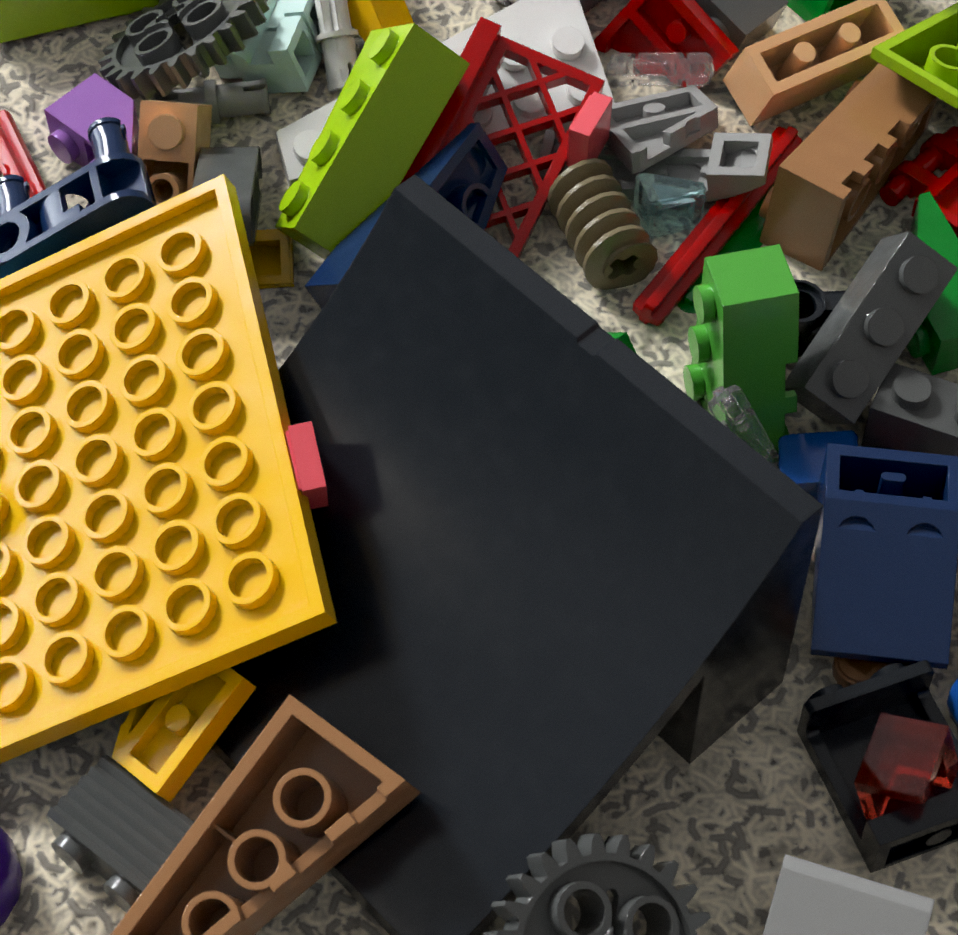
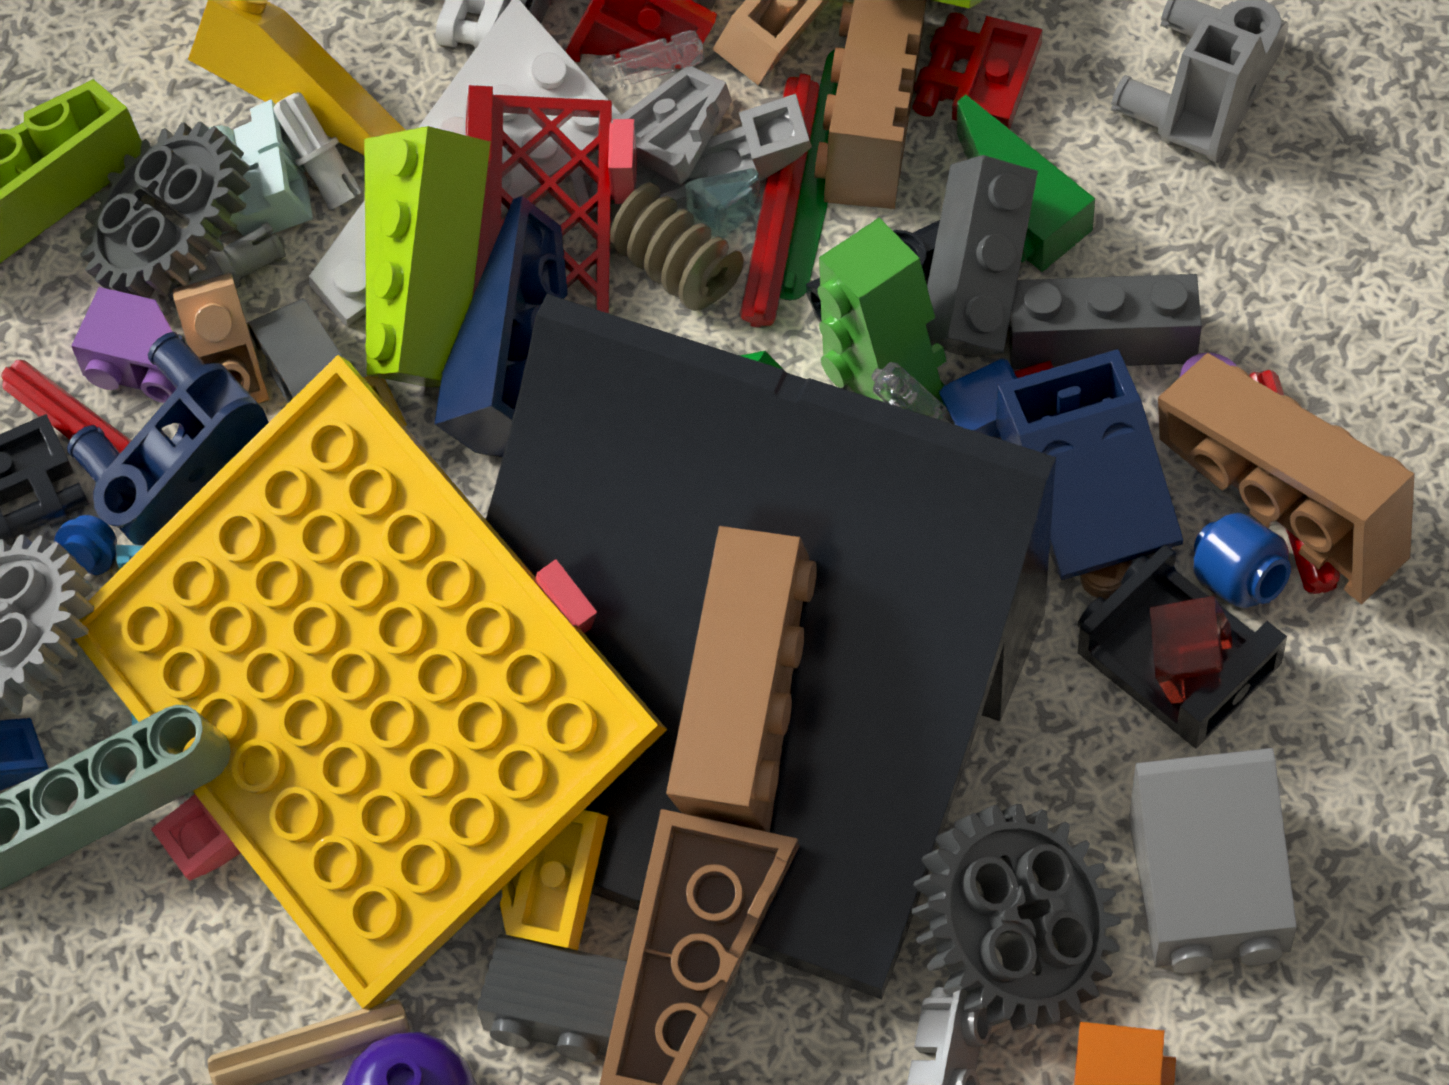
camera: 20 degrees left, 5 degrees up
(423, 606) = (742, 678): none -> medium nougat wedge

